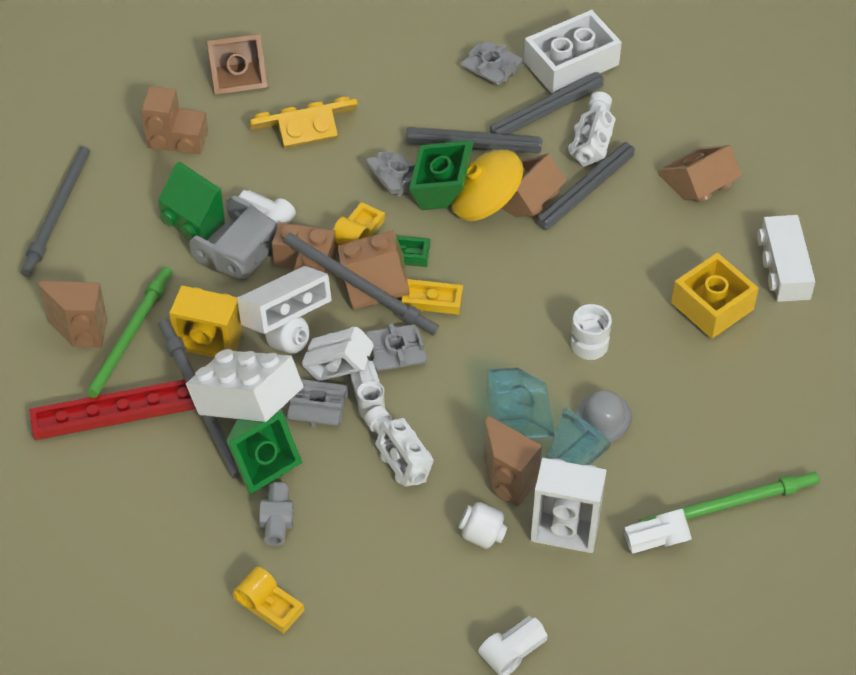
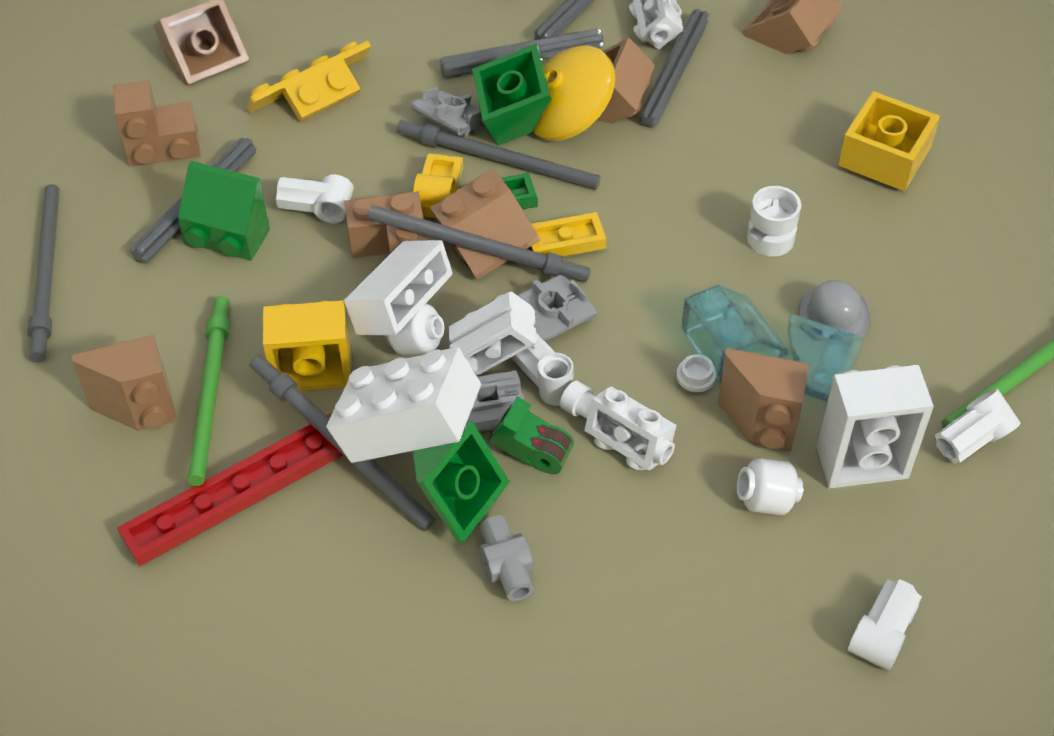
camera: 20 degrees left, 0 degrees up
(150, 203) = (168, 224): none -> dark grey axle
(239, 243) = (299, 240): light grey piece -> none
(262, 597) = (548, 675): yellow plate -> none
(332, 437) = (532, 438): none -> green leg
(375, 189) = (434, 136): none -> dark grey bar
(474, 428) = (696, 373): none -> white plate
(786, 258) = (939, 81): white brick -> none

